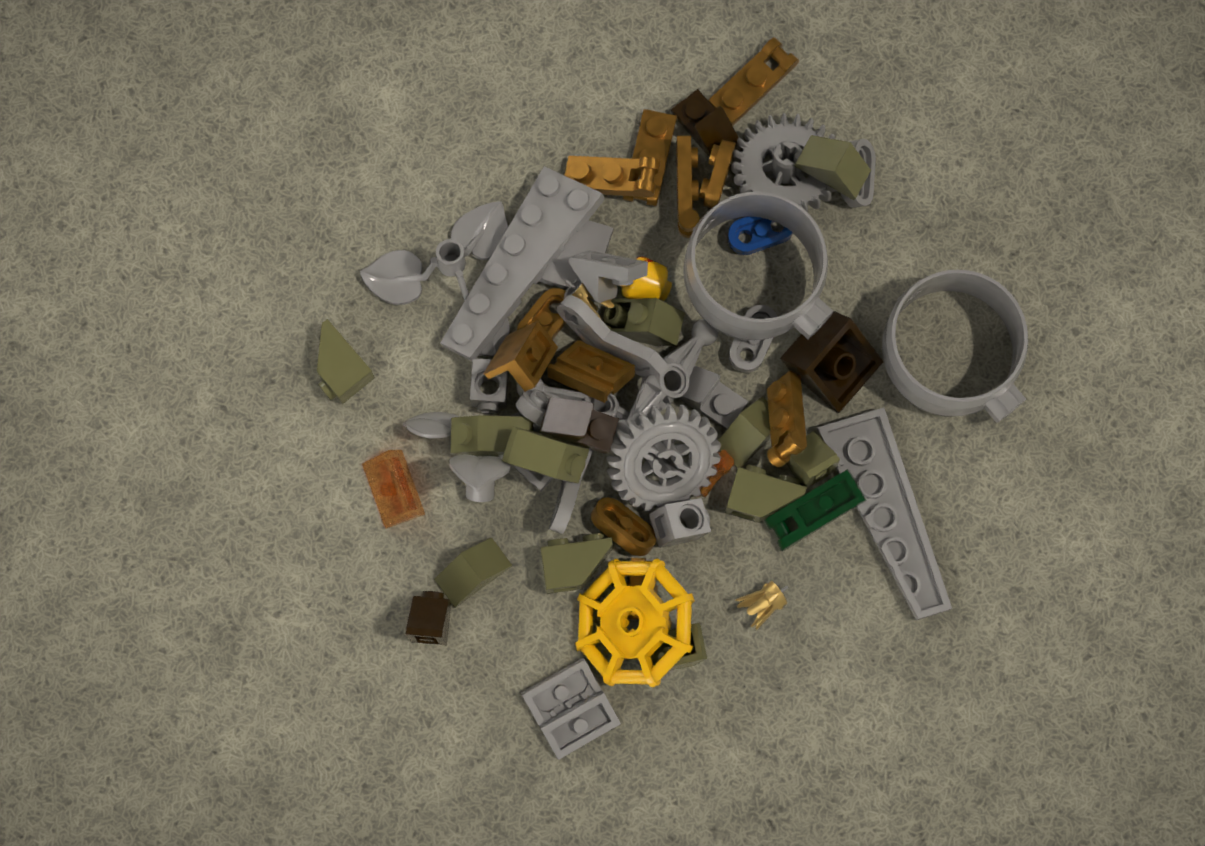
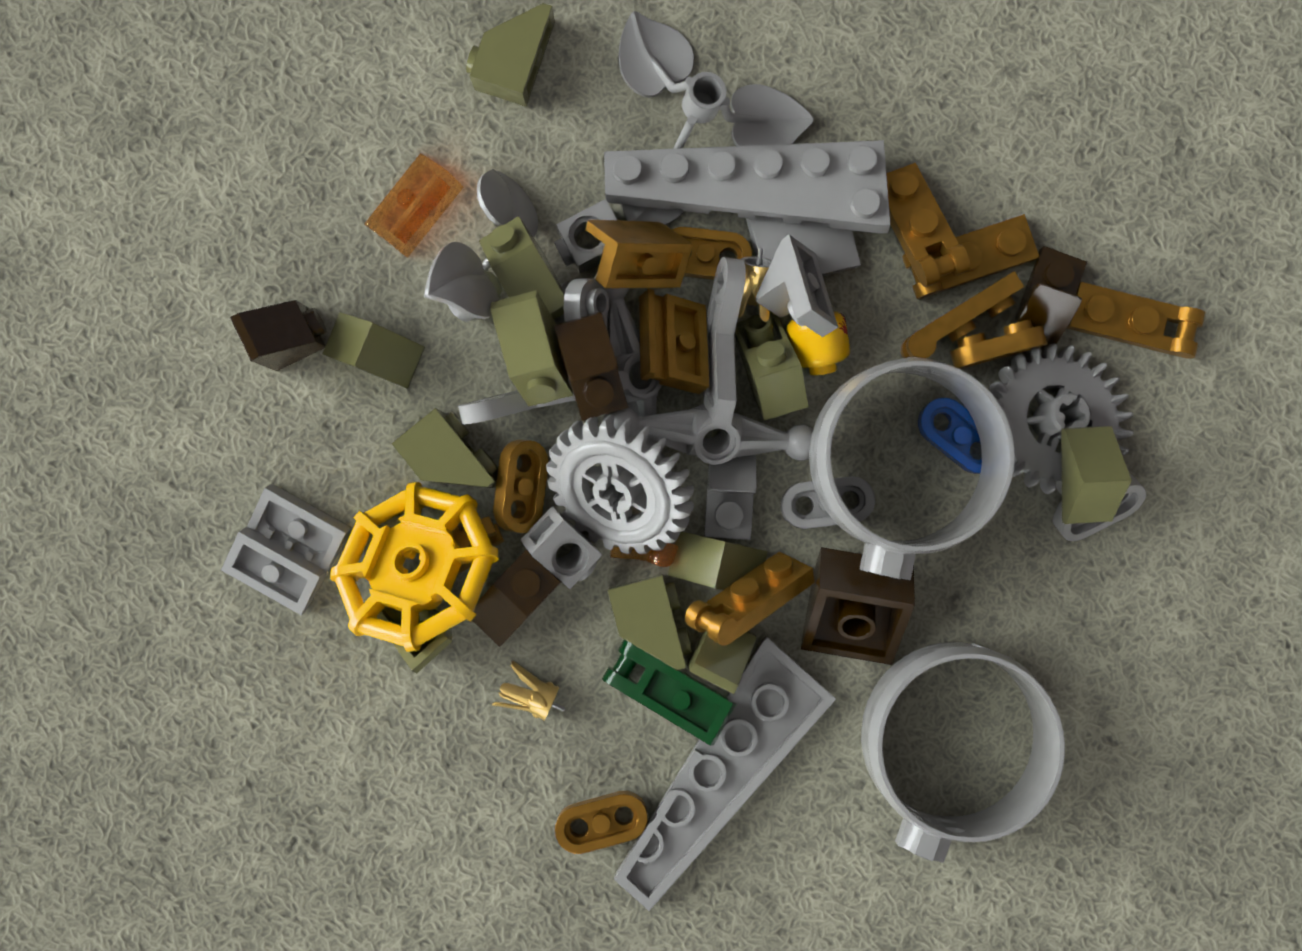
camera: 60 degrees right, 10 degrees up
(695, 571) = (514, 598): none -> dark brown slope
(875, 606) = (603, 826): none -> pearl gold plate

